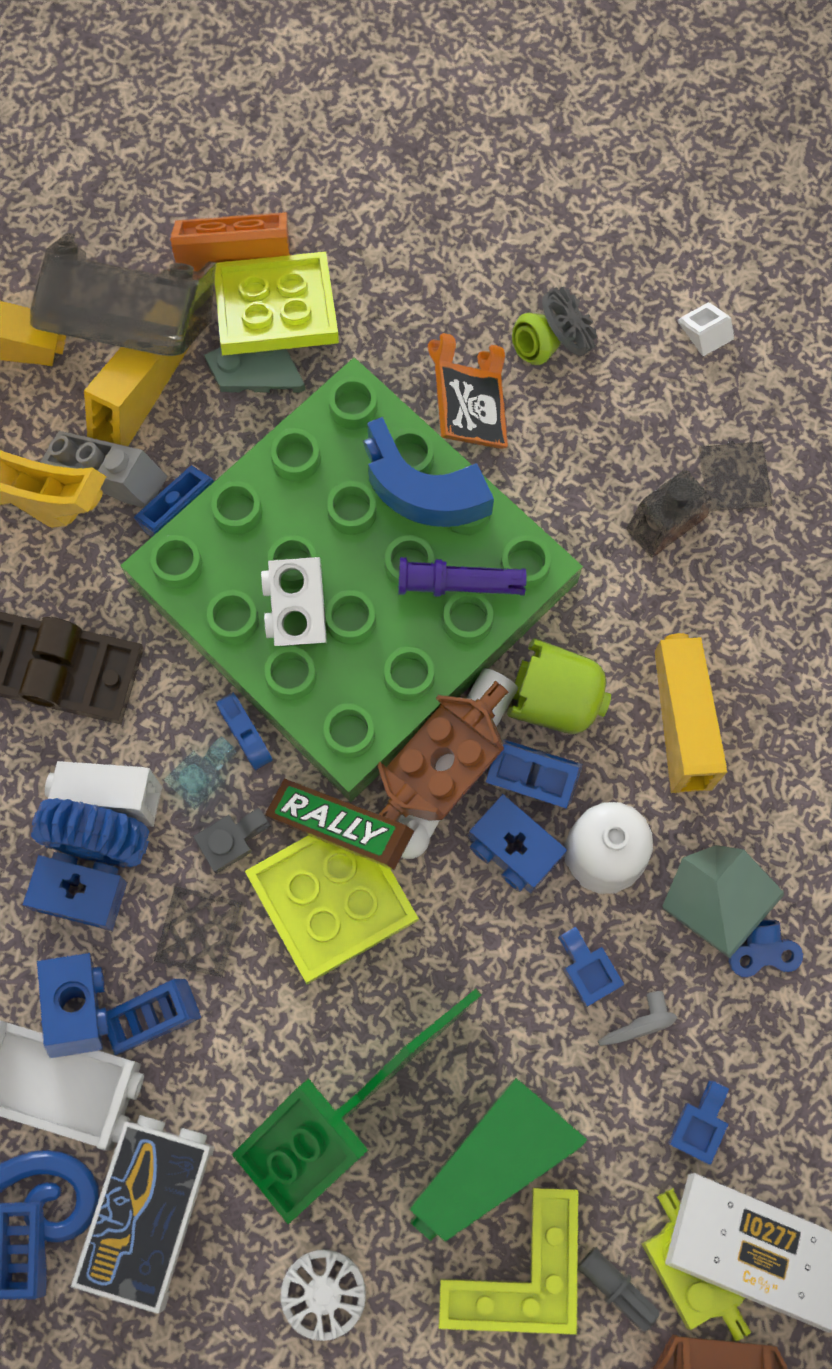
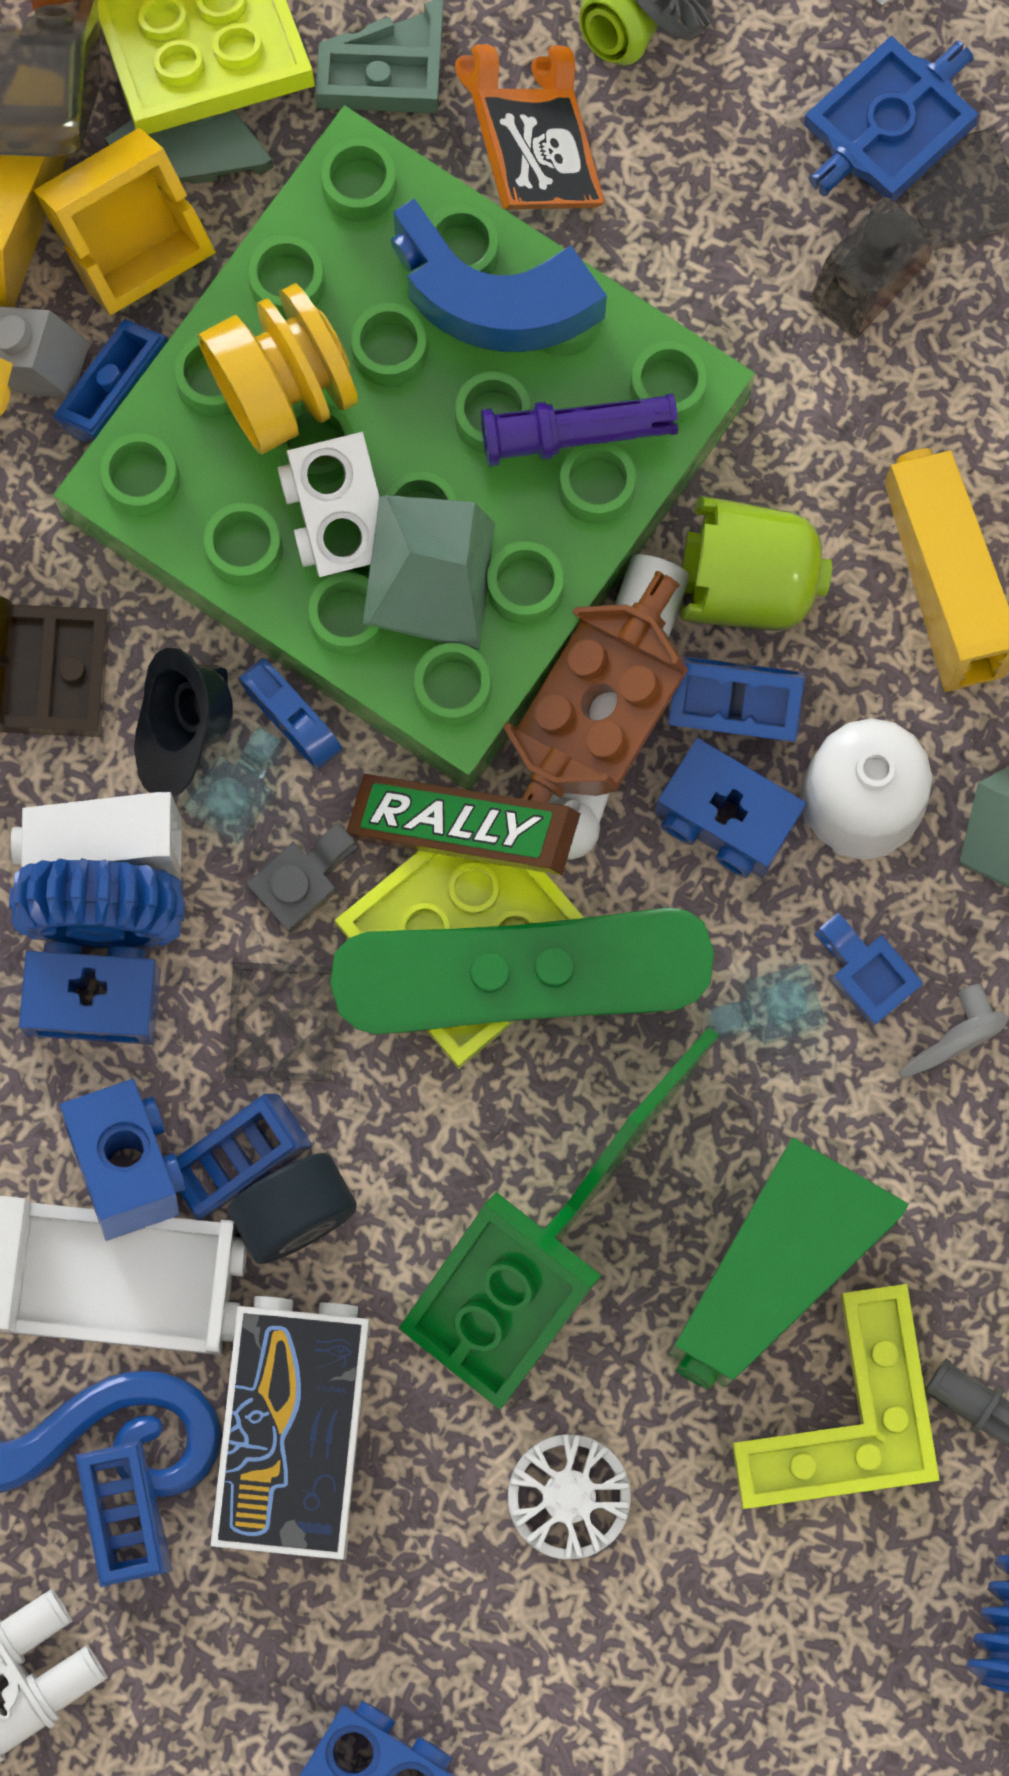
camera: 10 degrees left, 5 degrees up
(174, 721) = (180, 716): none -> black piece
(175, 1060) = (292, 1208): none -> black wheel
(200, 406) = (119, 223): none -> yellow piece
(274, 507) = (278, 368): none -> yellow wheel
(347, 653) = (429, 569): none -> sand green slope
(359, 928) = (522, 971): none -> green piece
(385, 340) = (384, 65): none -> sand green wing
(524, 980) = (776, 1005): none -> clear light blue plate
(697, 425) = (891, 119): none -> blue plate

